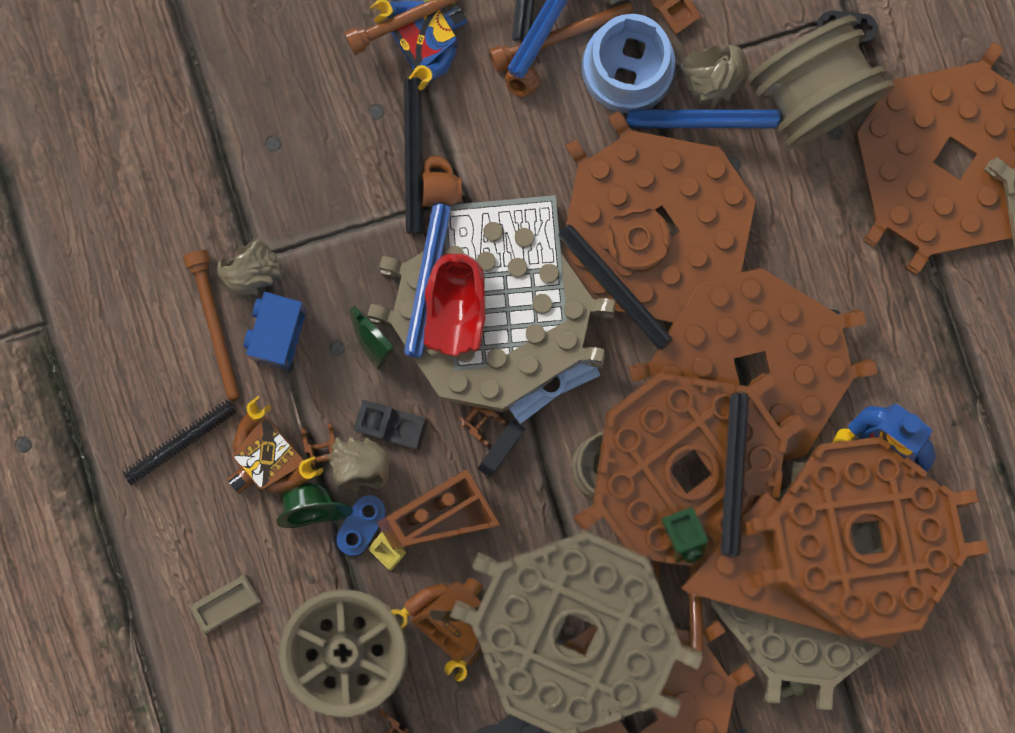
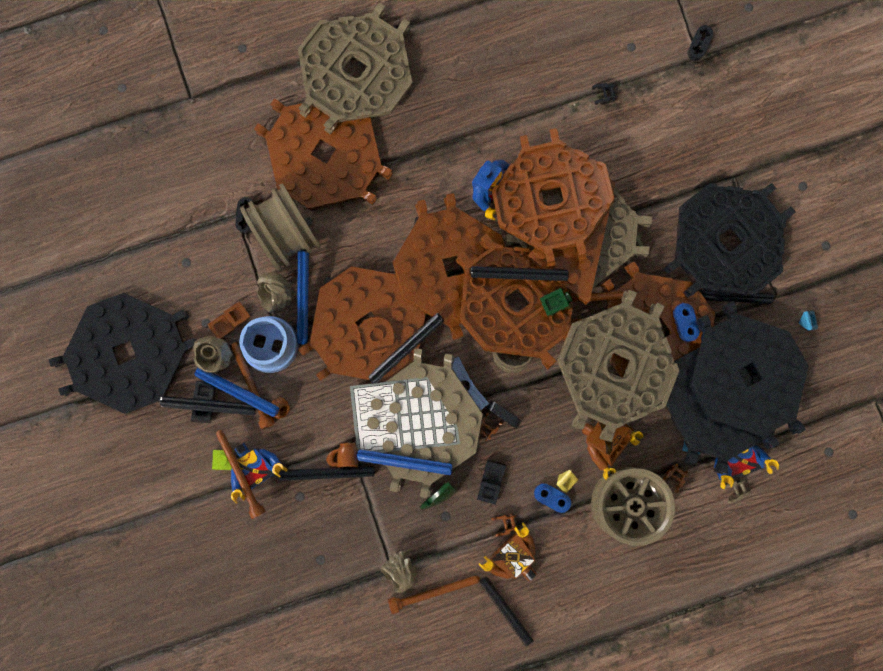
camera: 95 degrees left, 0 degrees up
(224, 604) = (602, 579): dark tan tile -> none
(275, 330) = (438, 555): blue slope -> none
(310, 505) = (542, 531): dark green piece -> none
(359, 464) = (516, 500): dark tan hair -> none
(441, 513) = (545, 450): dark orange wedge -> none
(455, 305) = (421, 444): red hair -> none

